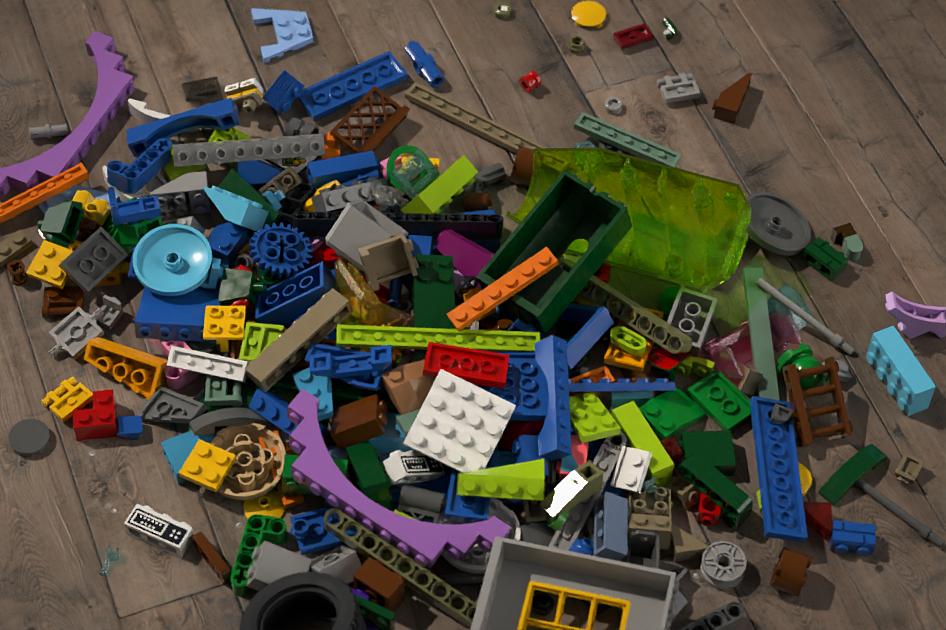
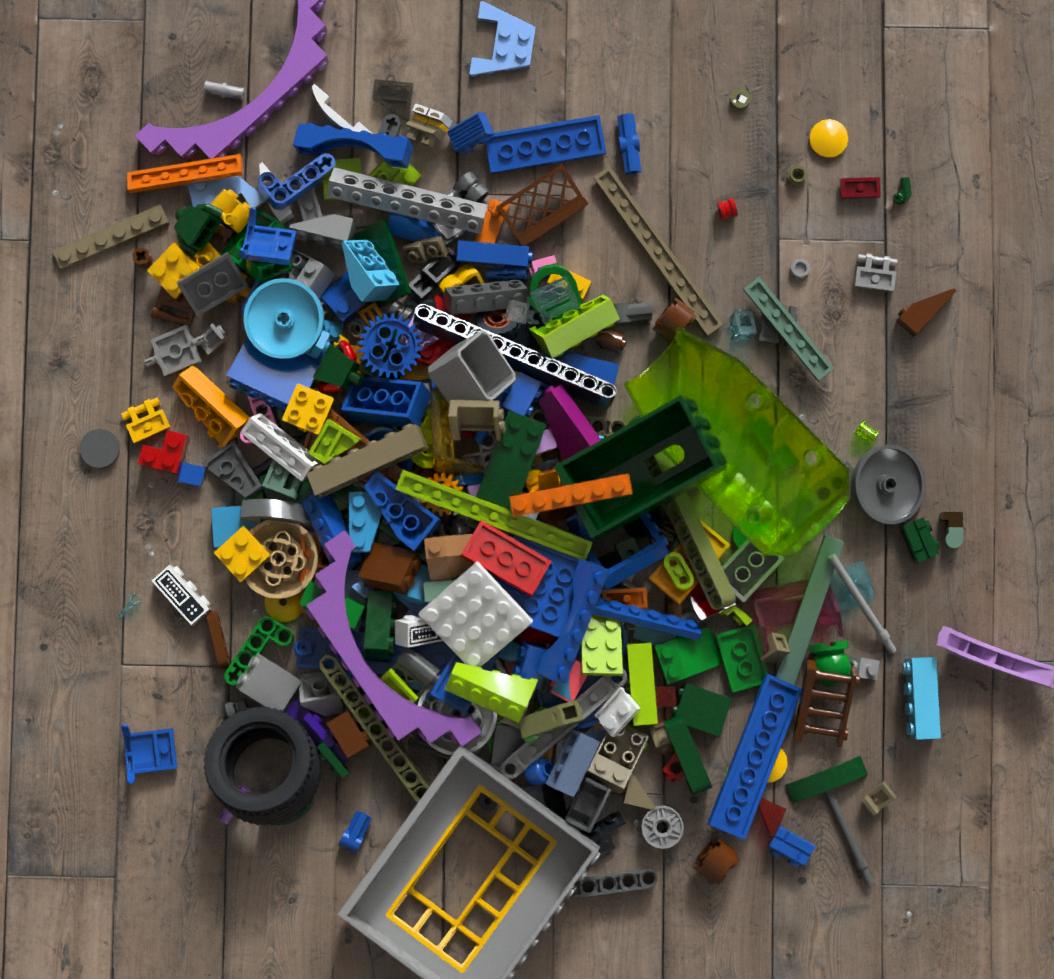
camera: 25 degrees right, 30 degrees up
(274, 198) = (411, 267): dark azure tile -> none
(351, 365) = (400, 516): blue slope -> none
(649, 485) = (629, 732): clear light blue hand -> none
(780, 414) = (785, 703): dark grey tile -> none

